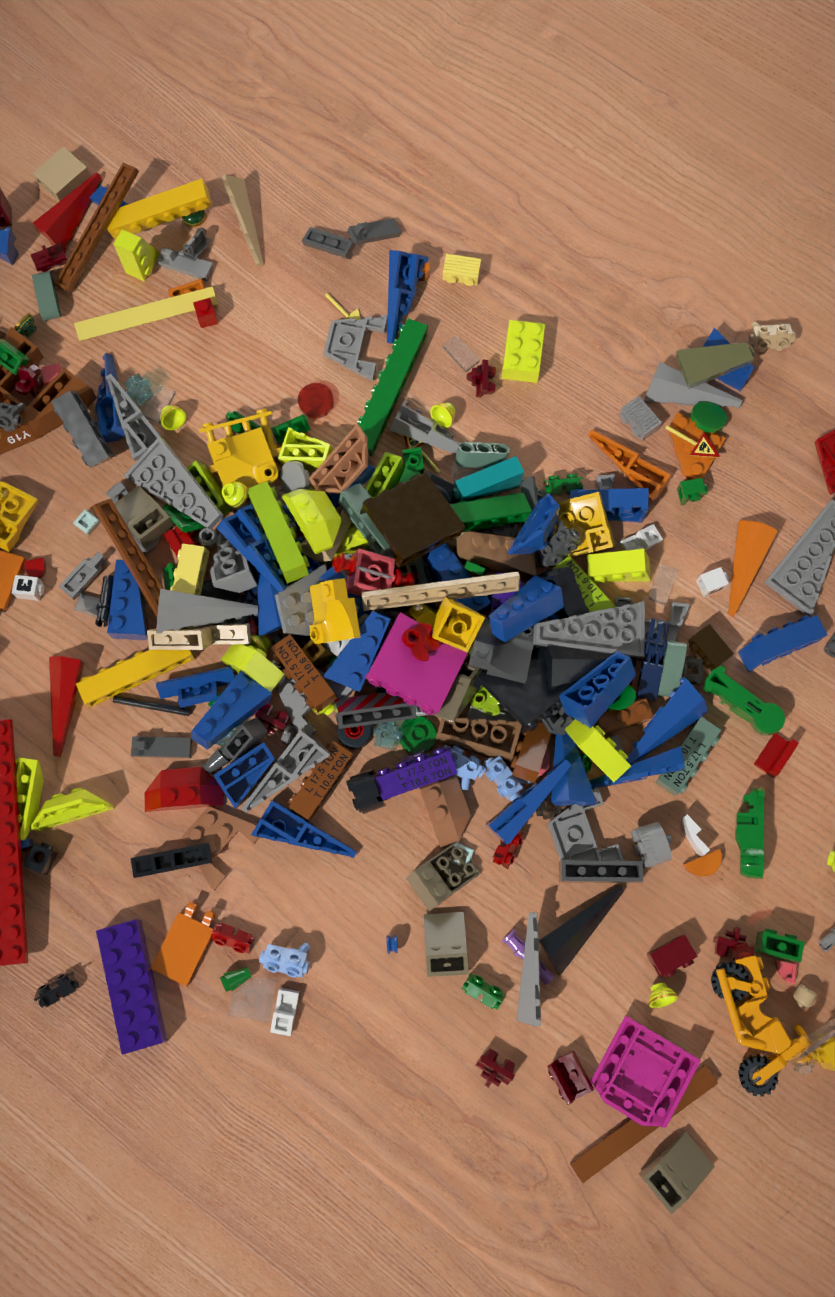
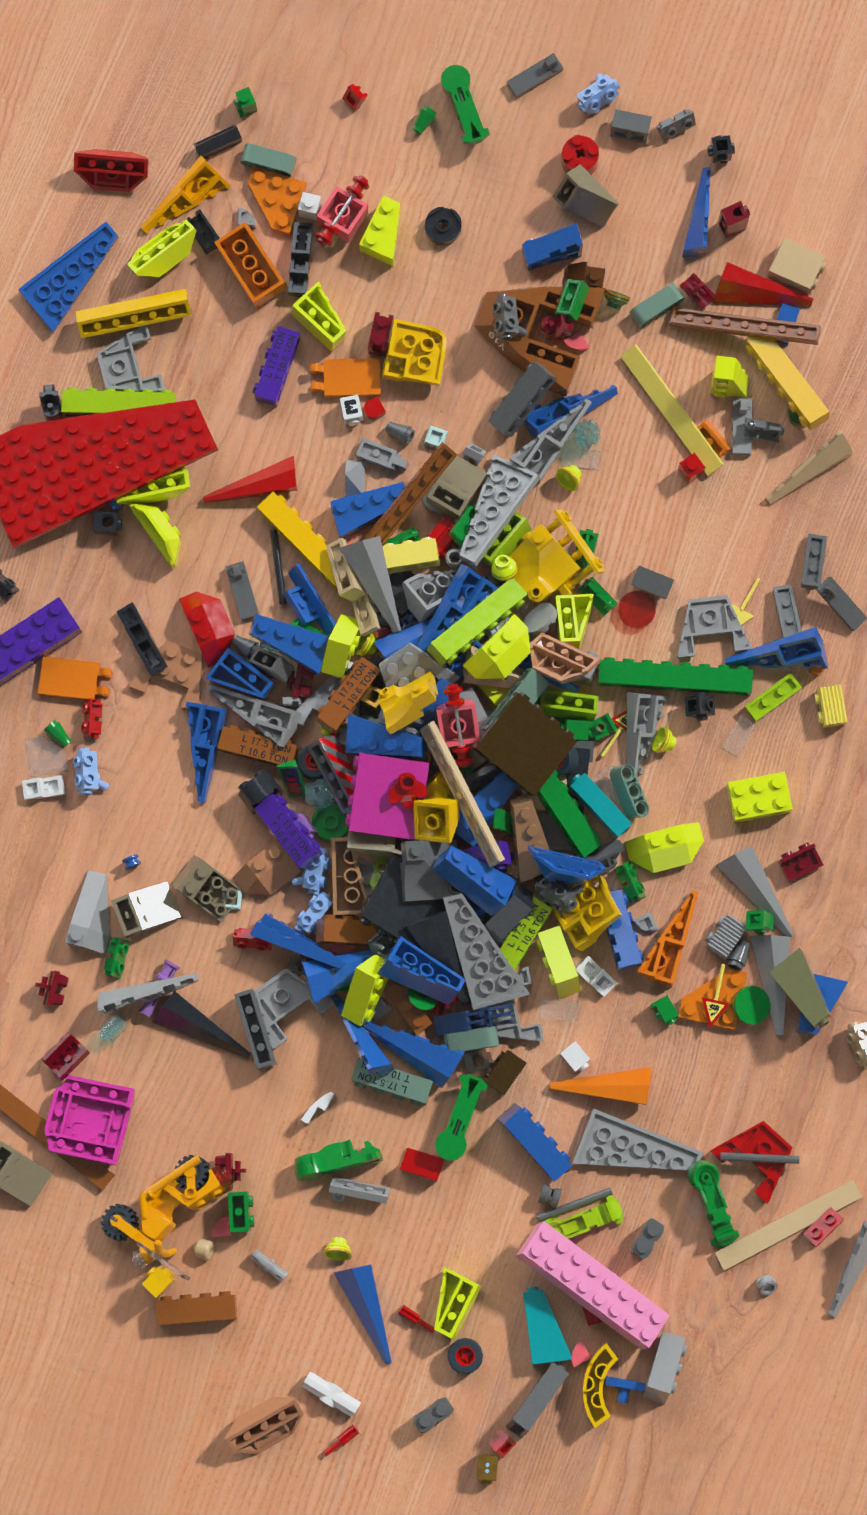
camera: 75 degrees right, 5 degrees up
(68, 550) = (401, 432): none -> dark grey cone
(103, 606) = (361, 486): black pin -> none
(295, 377) = (652, 582): none -> dark grey hinge
(364, 277) = (787, 610): none -> hinge
(365, 756) = (292, 779): none -> slope
(424, 372) = (700, 706): none -> black brick
(436, 313) = (773, 697): none -> lime plate
(436, 1004) = (90, 919): none -> light grey wedge
(479, 378) = (724, 765): dark red hips -> none
(543, 444) = (665, 847): none -> neon yellow wedge
(555, 1018) = (112, 1028): none -> clear light blue brick
(592, 337) = (800, 862): none -> dark red bracket
(593, 381) = (750, 878): none -> light grey wedge
(636, 385) = (759, 921): none -> green brick
(652, 844) = (295, 1068): light grey piece -> none
(661, 996) = (162, 1117): neon yellow piece -> none
(664, 414) = (738, 957): none -> dark grey cone
(672, 956) = (200, 1117): dark red brick -> none
(705, 865) = (294, 1126): orange tile -> none
(785, 822) = (343, 1187): none -> light grey hinge

